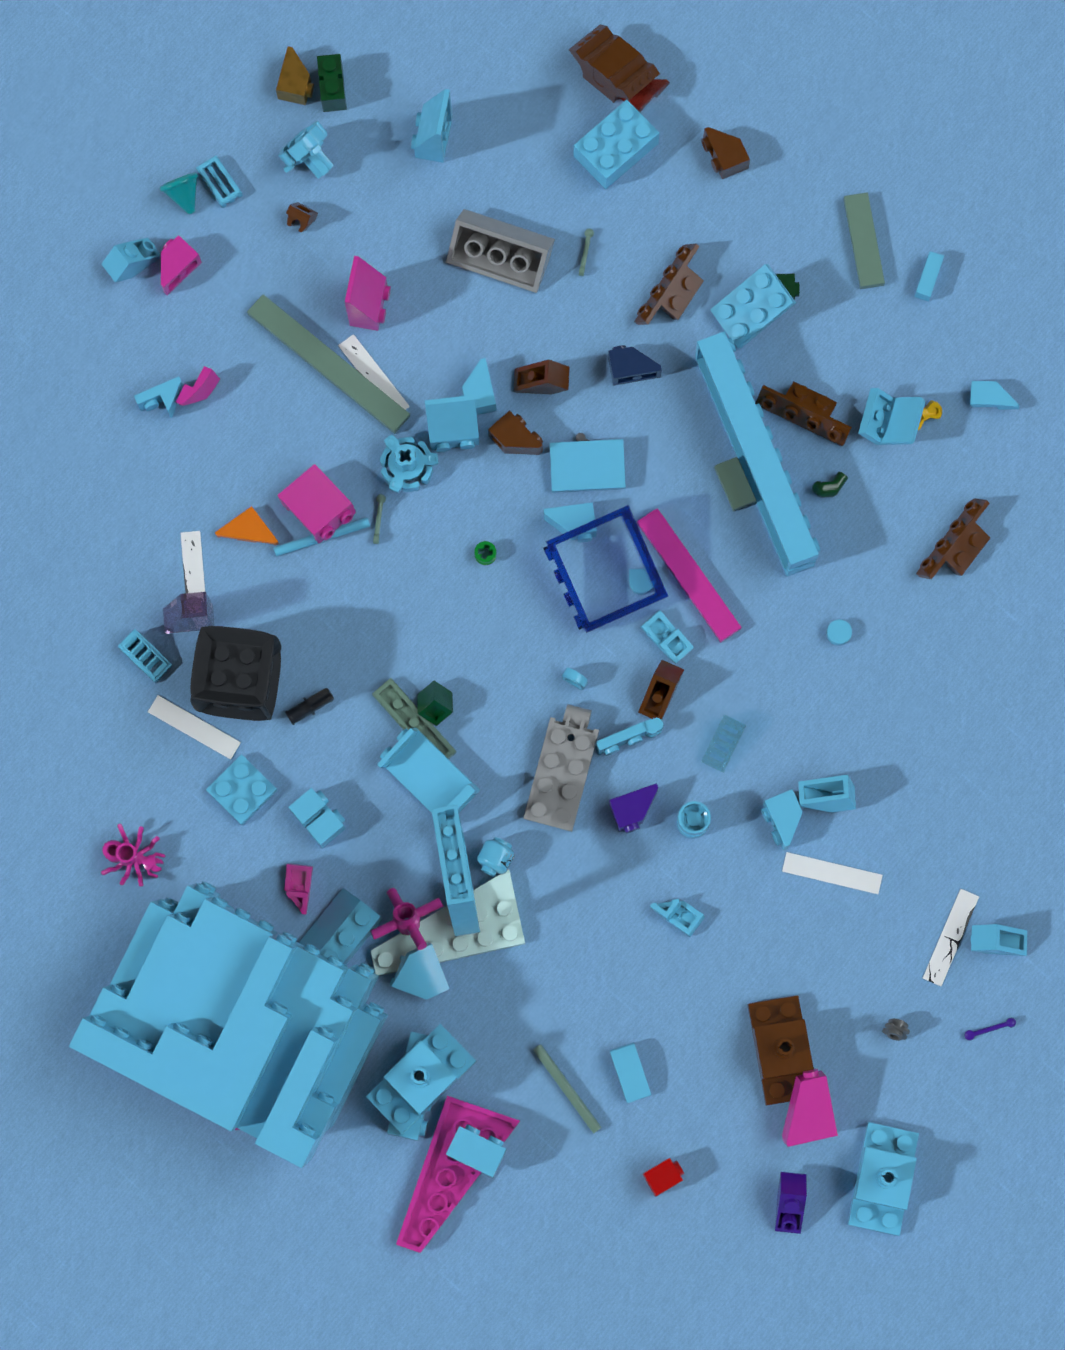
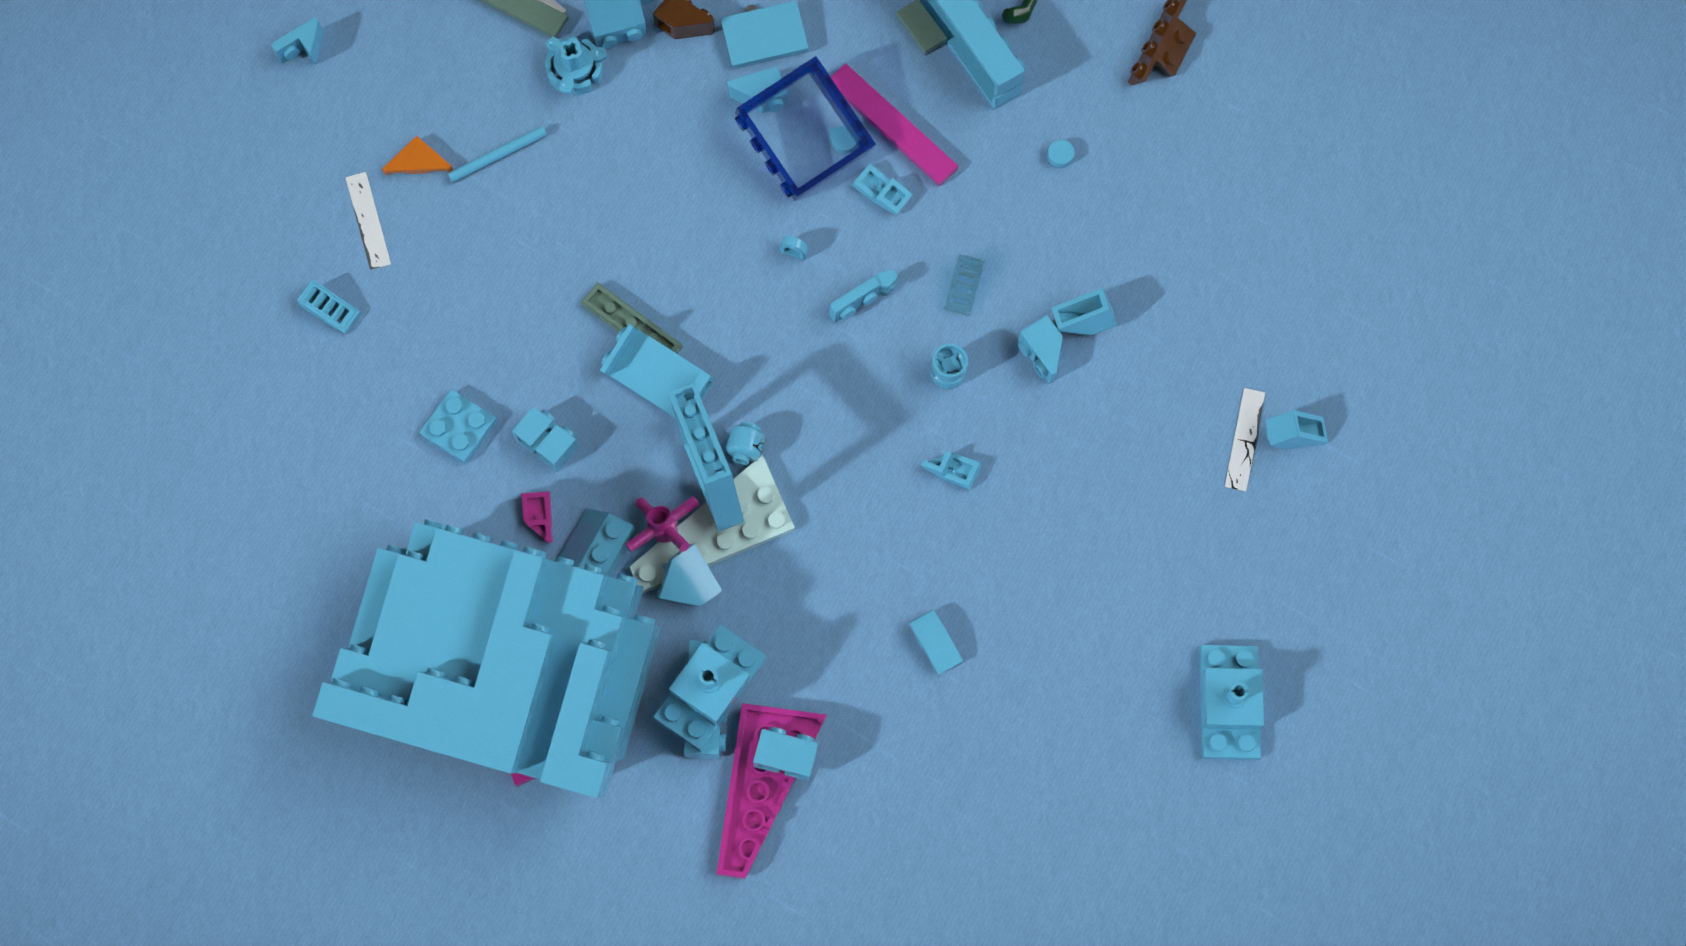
camera: 15 degrees left, 5 degrees down
(128, 855) = (344, 516): dark pink animal -> none
(188, 613) = (368, 252): clear purple slope -> none
(194, 727) = (395, 372): white sticker -> none
(201, 390) = (342, 28): dark pink slope -> none
(235, 673) = (429, 301): black piece -> none
(309, 705) = (515, 326): black axle -> none
(317, 503) = (486, 118): dark pink panel -> none
(380, 499) = (553, 106): sand green hinge -> none
(435, 703) = (650, 299): dark green panel -> none
(490, 558) = (680, 144): green bush -> none
(562, 770) = (799, 343): light grey hinge -> none
(567, 1088) = (870, 672): sand green bar -> none
(632, 808) = (880, 368): dark purple slope -> none
(661, 690) = (887, 242): reddish brown slope -> none
(663, 1176) = (994, 744): red brick -> none
(780, 1046) = (1093, 588): reddish brown brick -> none
(791, 1202) = (1137, 745): dark purple slope -> none
(810, 1110) = (1136, 642): dark pink slope -> none
(832, 873) = (1106, 397): white sticker -> none
(896, 1029) = (1209, 542): dark grey plate -> none
(969, 1035) = (1287, 535): dark purple hinge -> none

